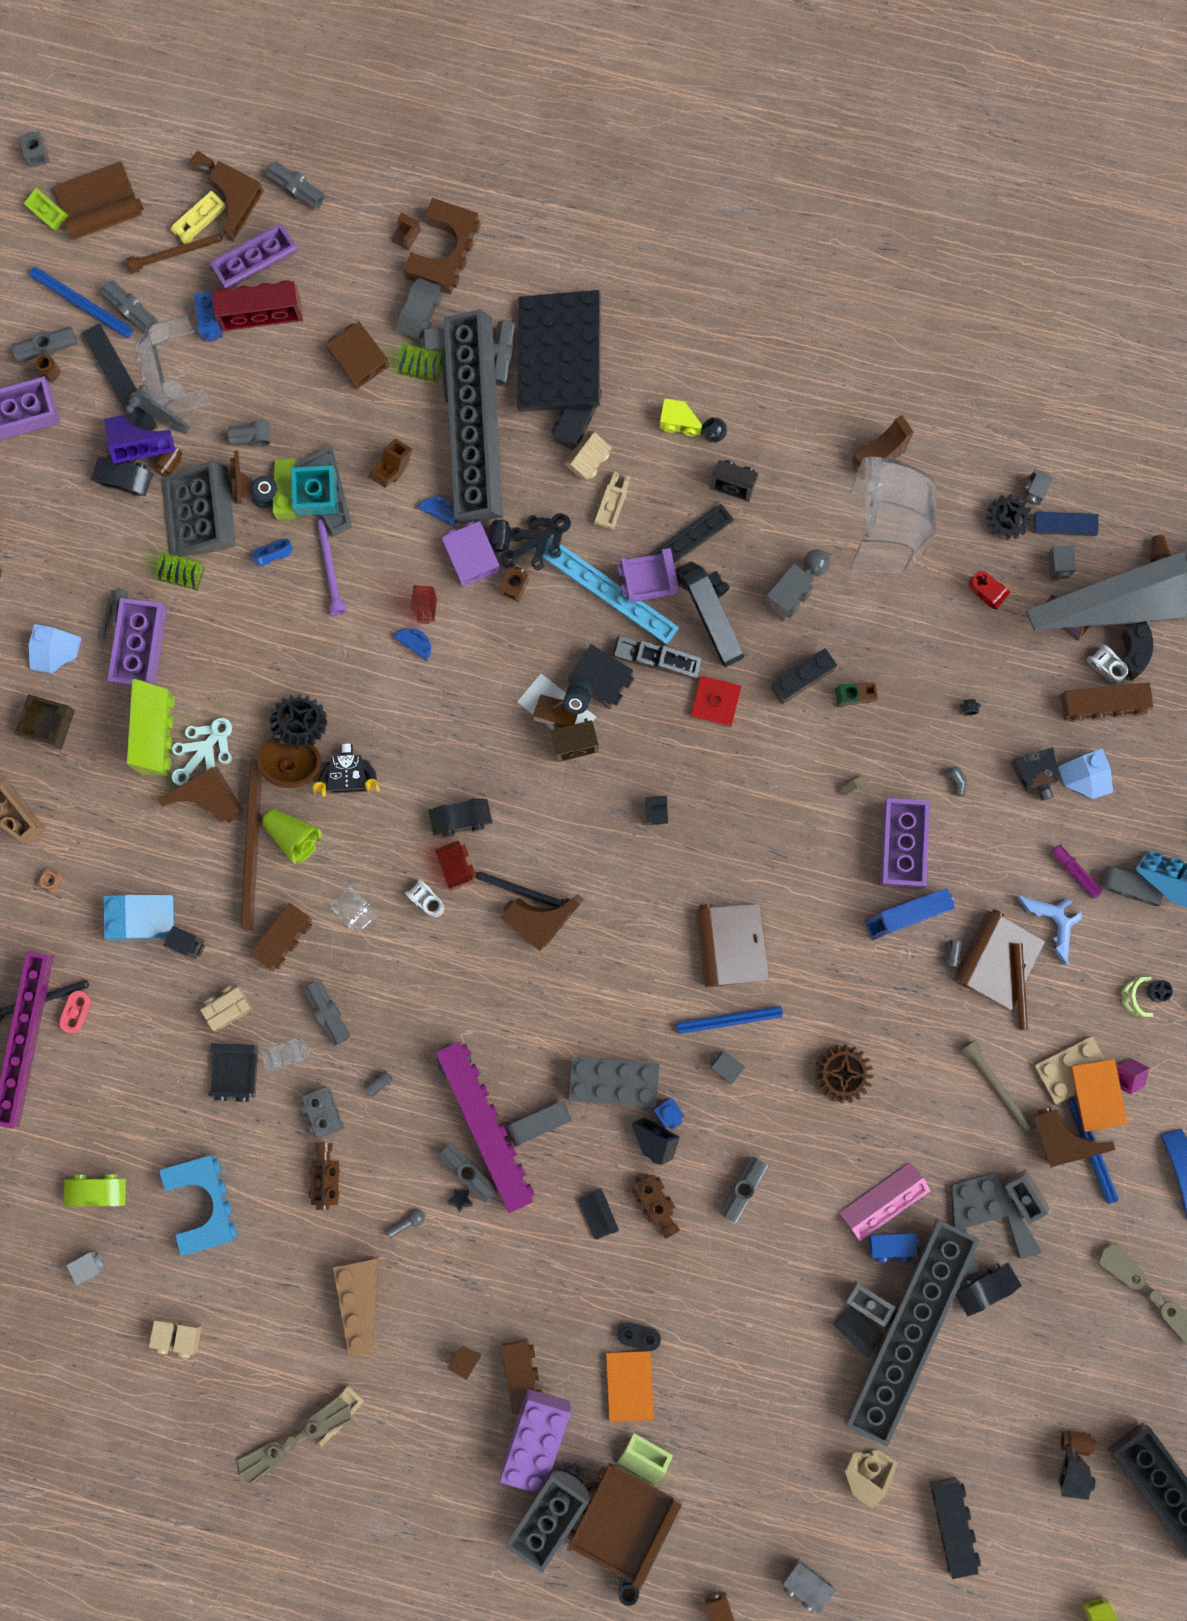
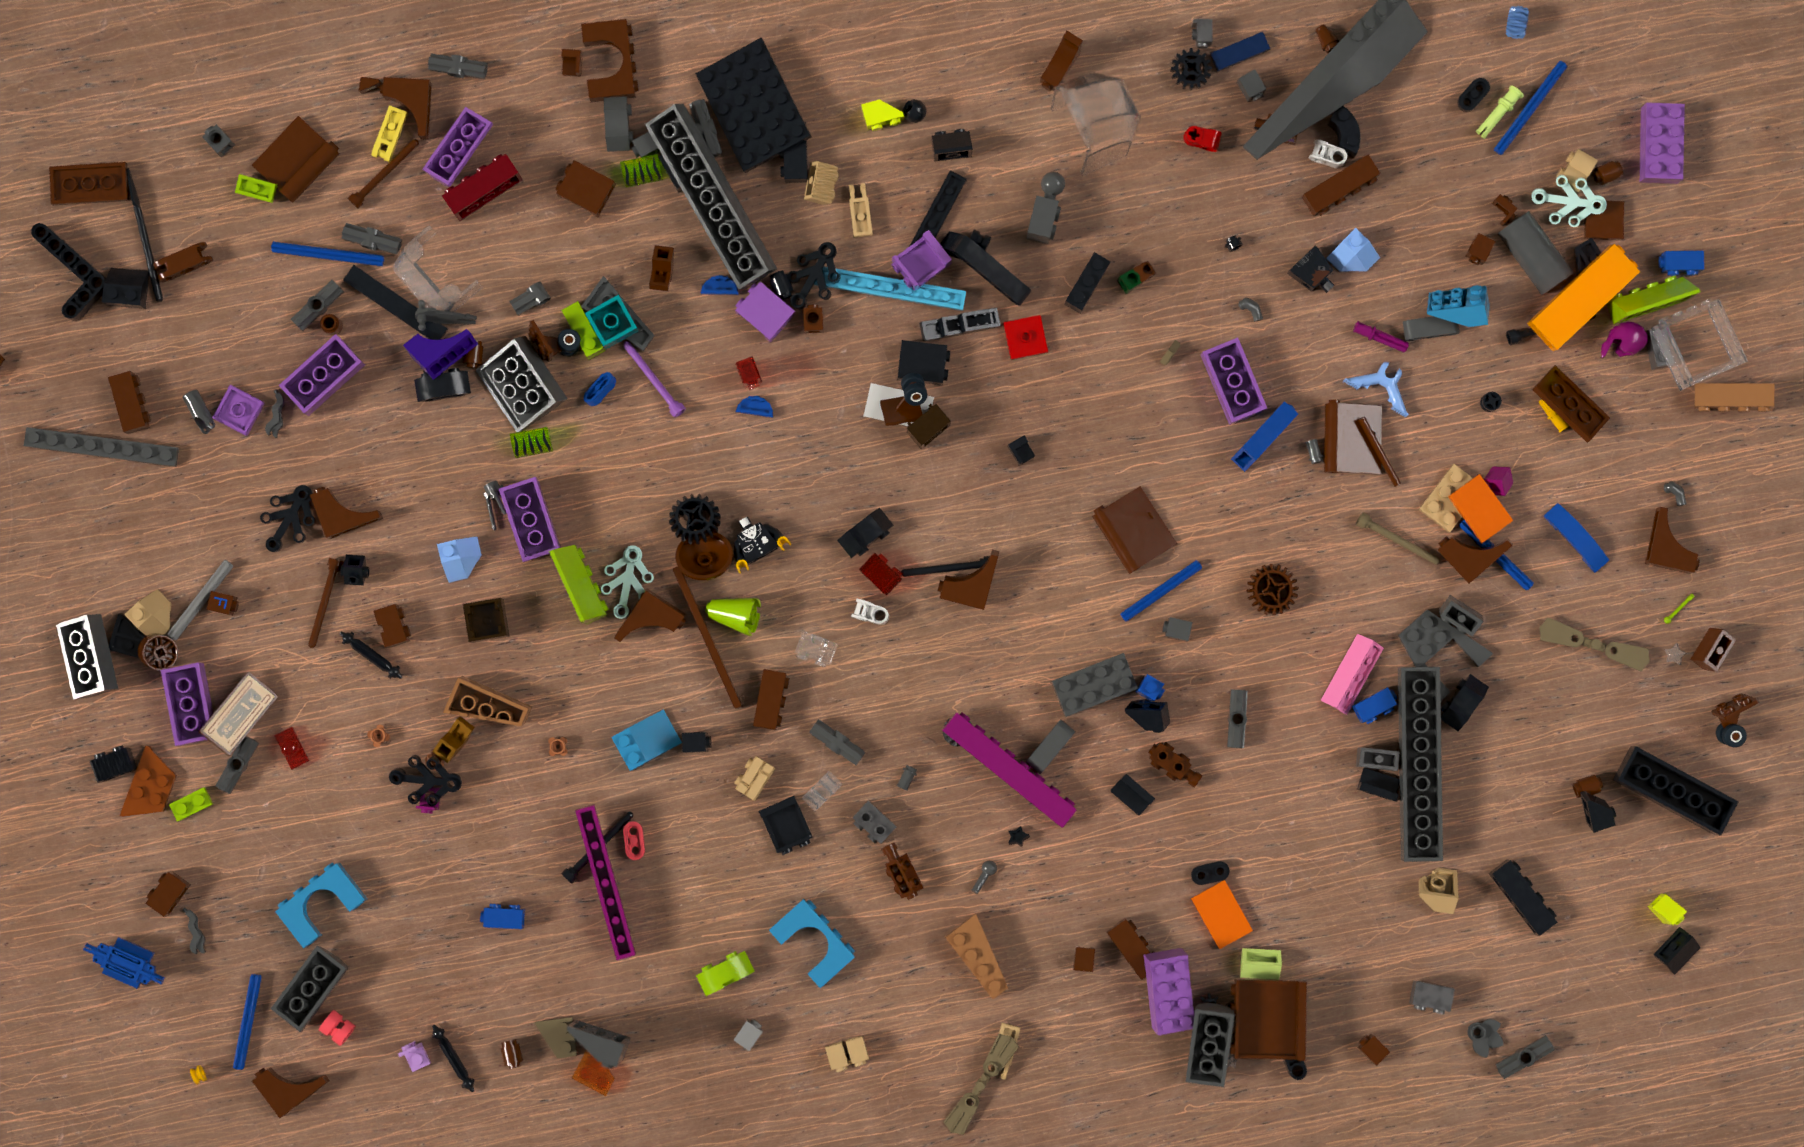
camera: 30 degrees left, 5 degrees up
(207, 323) = (443, 215): blue brick -> none
(457, 1162) = (1026, 816): dark grey piece -> none
(1135, 982) = (1468, 404): yellowish green helmet -> none

